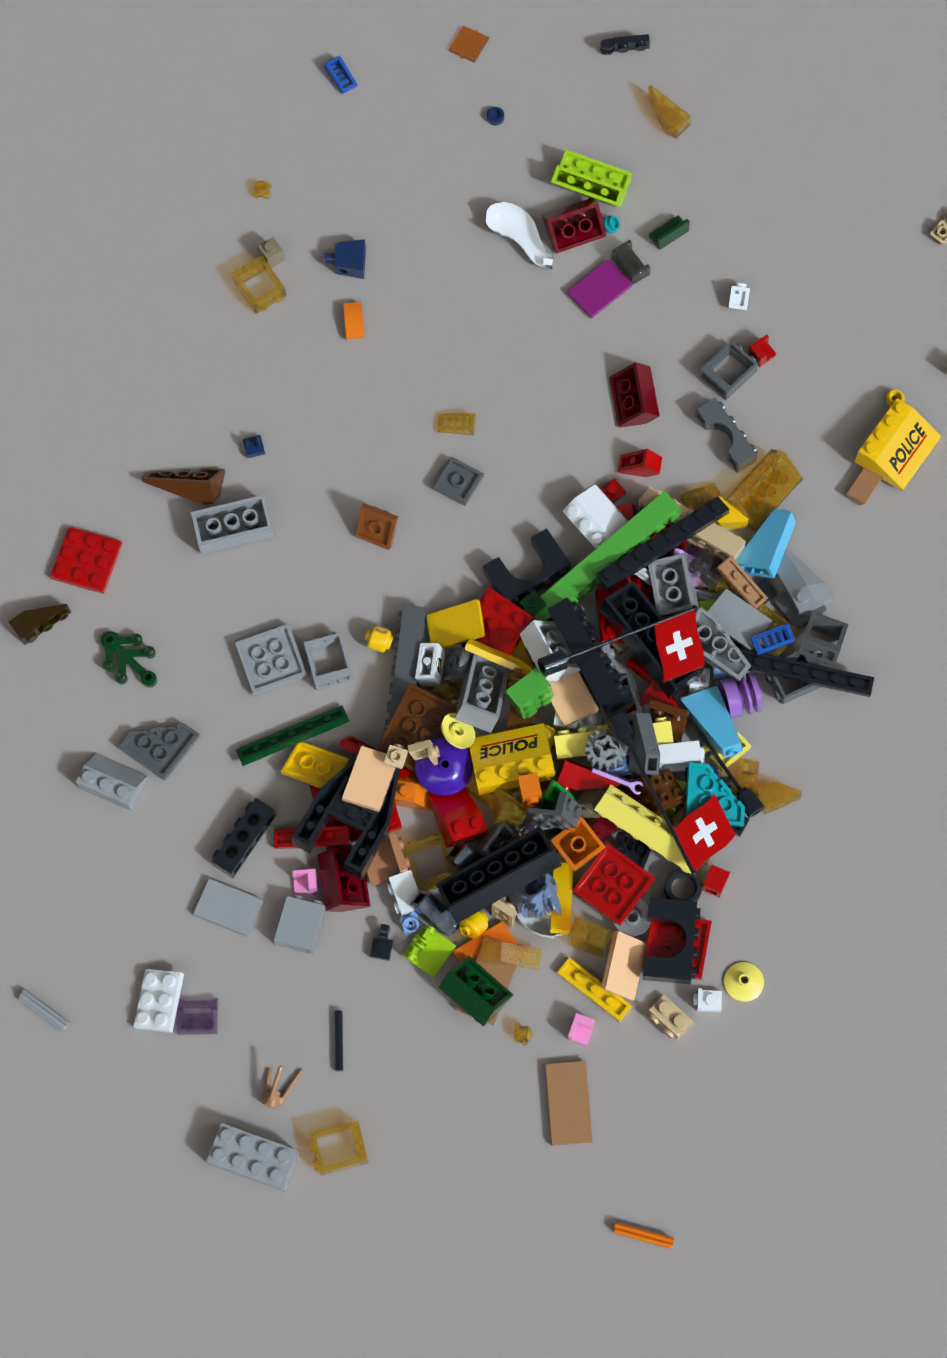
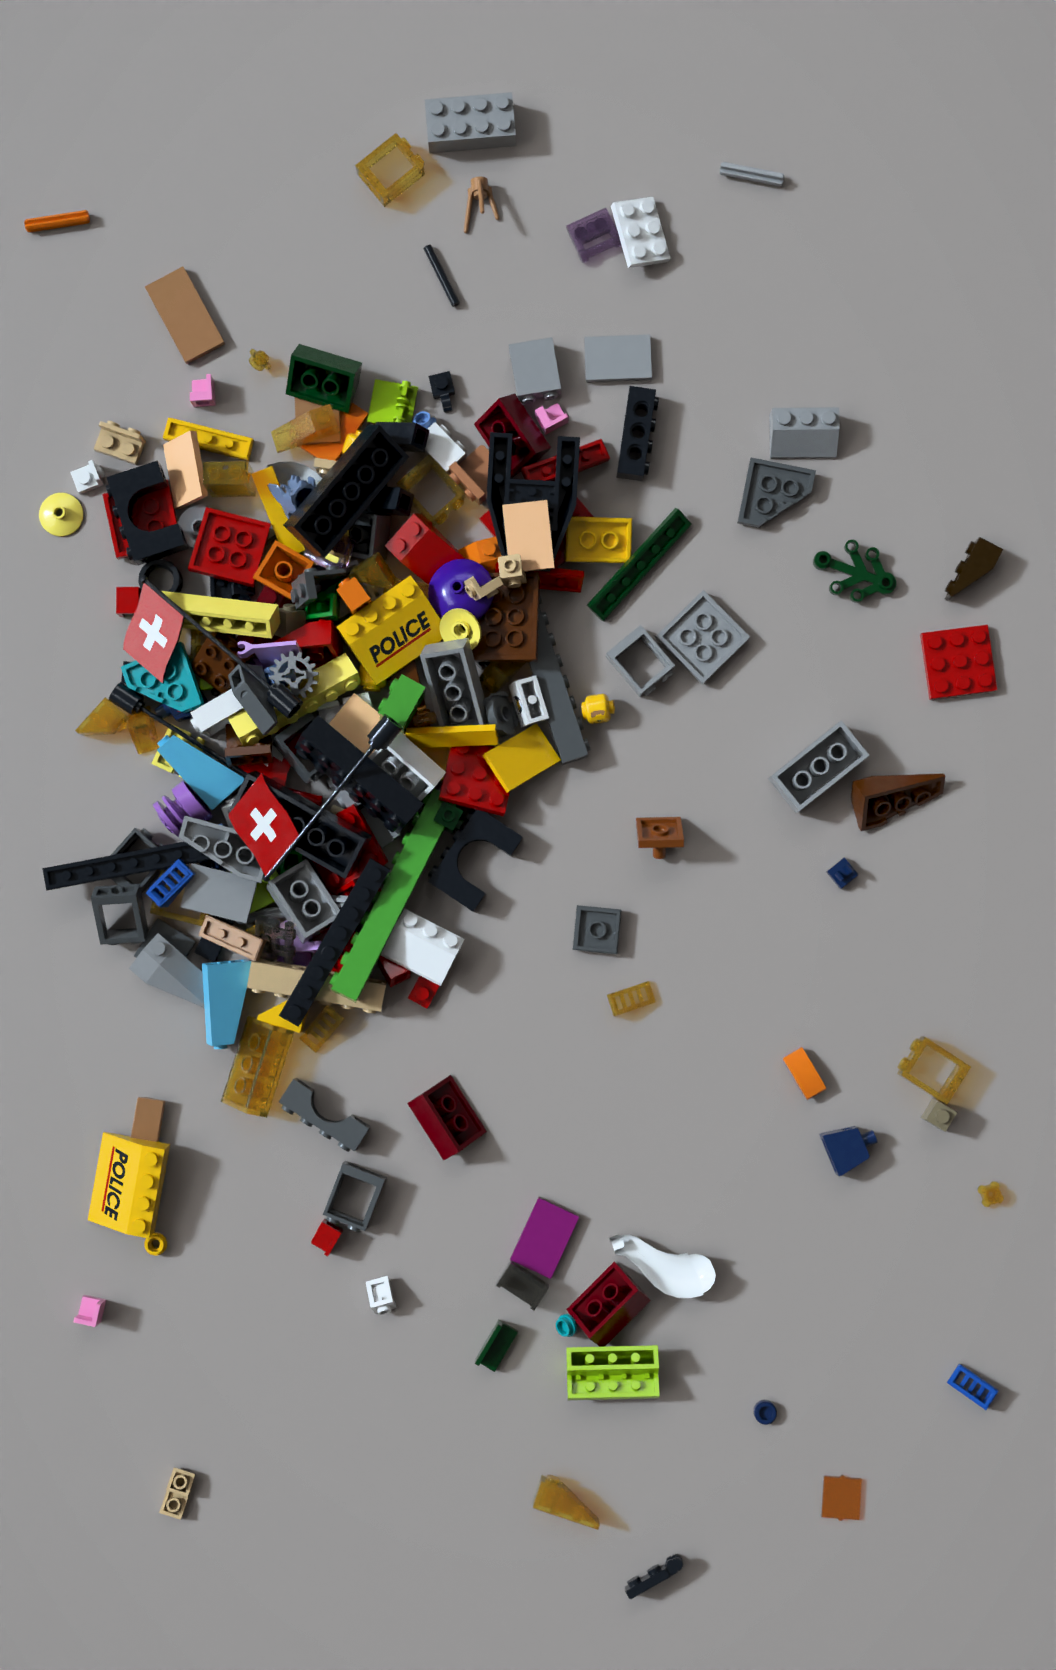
camera: 155 degrees right, 15 degrees up
(640, 463) = (405, 1037): red slope -> none

